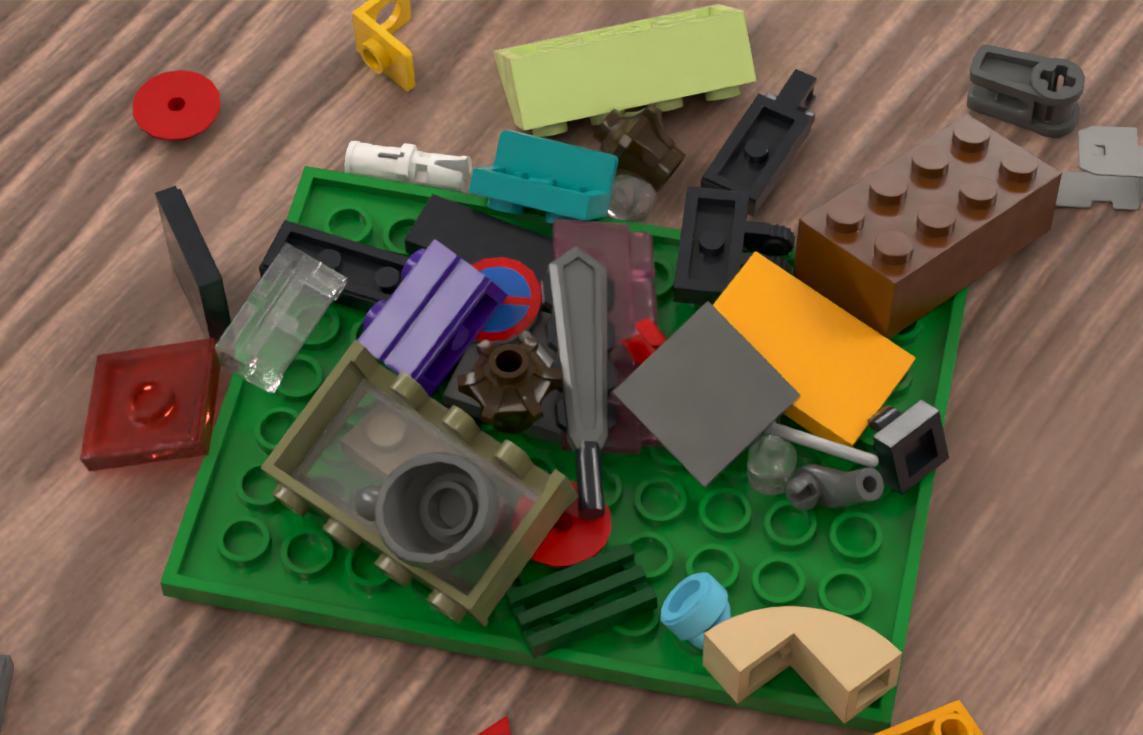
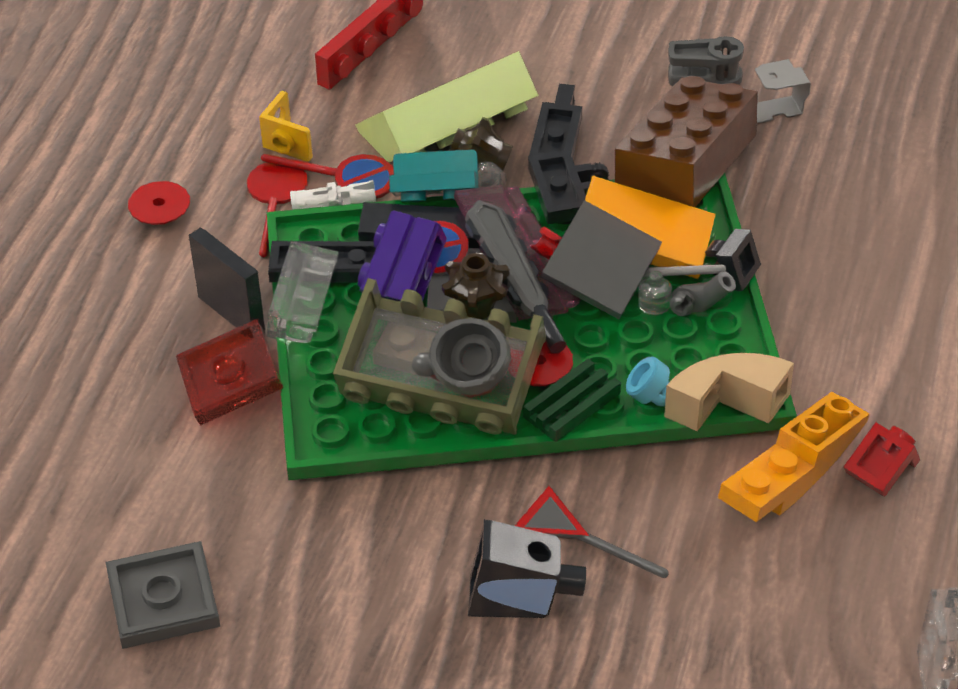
camera: 20 degrees left, 10 degrees down
(346, 113) = (272, 185): none -> red piece
(457, 131) = (350, 171): none -> piece

